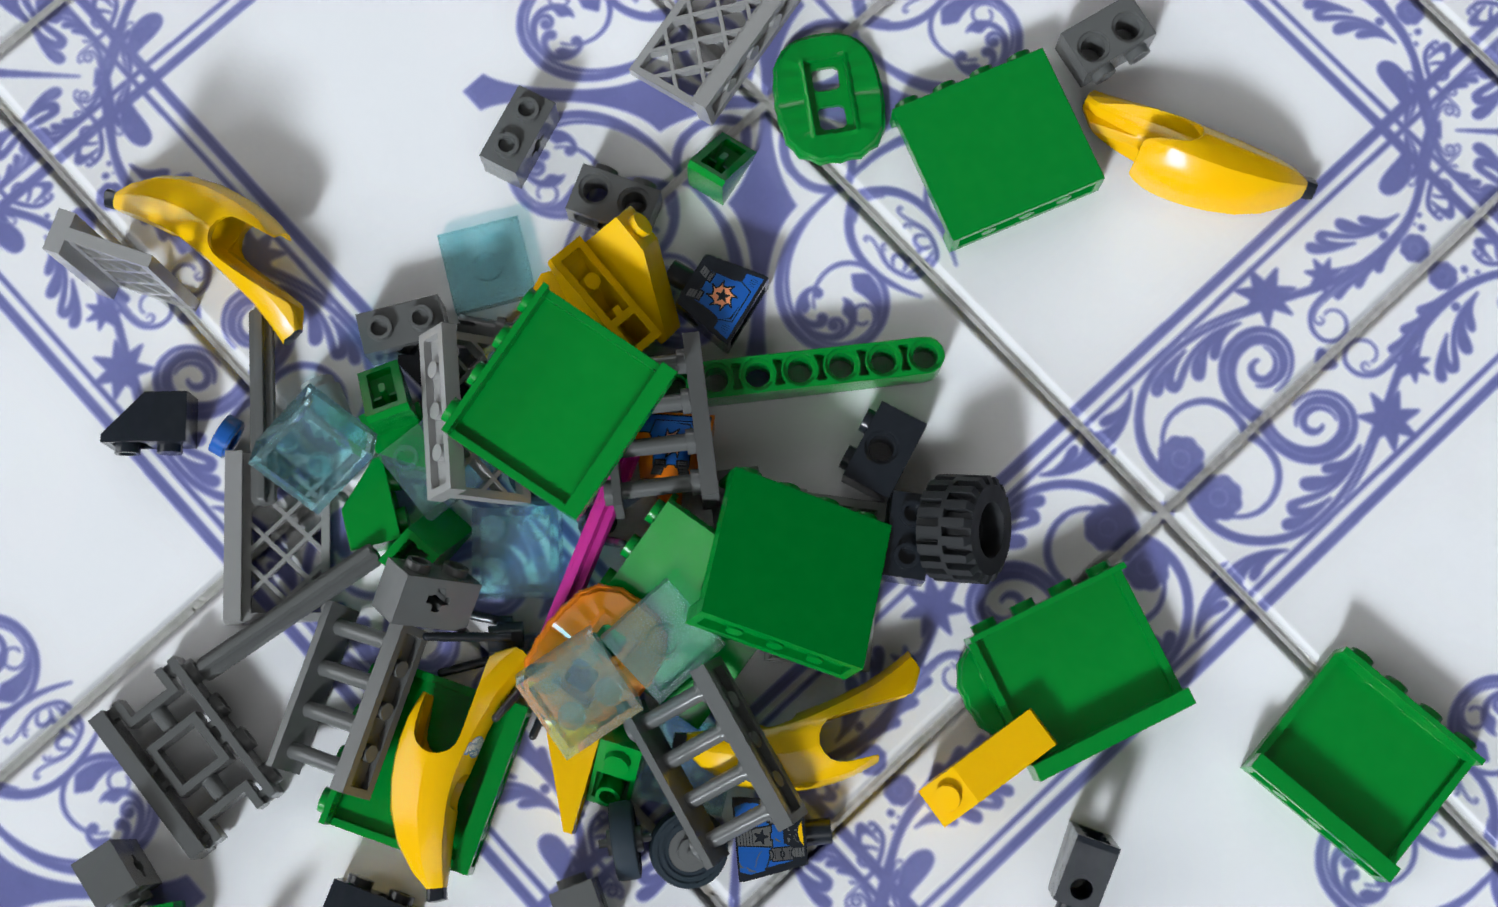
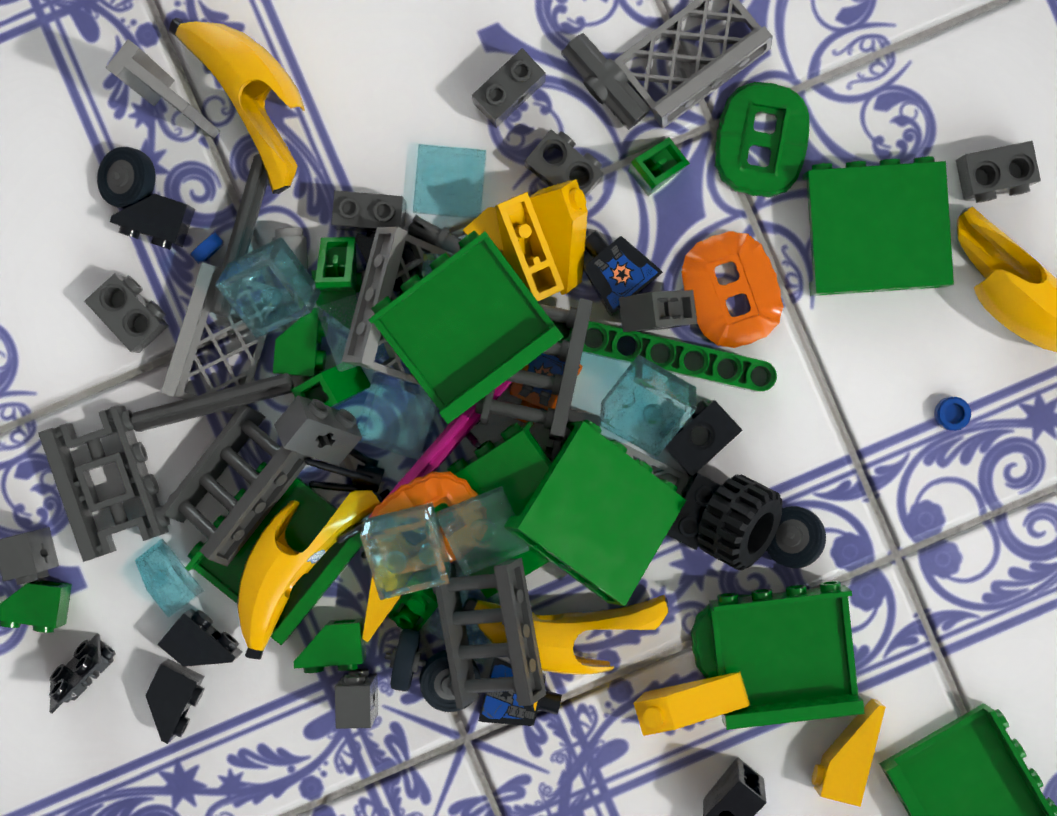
camera: 20 degrees right, 10 degrees up
(103, 386) = (125, 177): none -> black wheel
(151, 549) = (122, 319): none -> dark grey brick
(302, 847) = (167, 578): none -> clear light blue slope
(533, 853) = (335, 645): none -> green slope
(627, 93) = (605, 81): none -> dark grey piece
(778, 321) = (657, 310): none -> dark grey brick
(806, 433) = (647, 406): none -> clear light blue piece
(833, 291) = (755, 280): none -> orange piece
(1040, 529) = (798, 538): none -> black wheel
(1162, 326) = (952, 413): none -> blue tile
(1202, 775) = (848, 760): none -> yellow slope

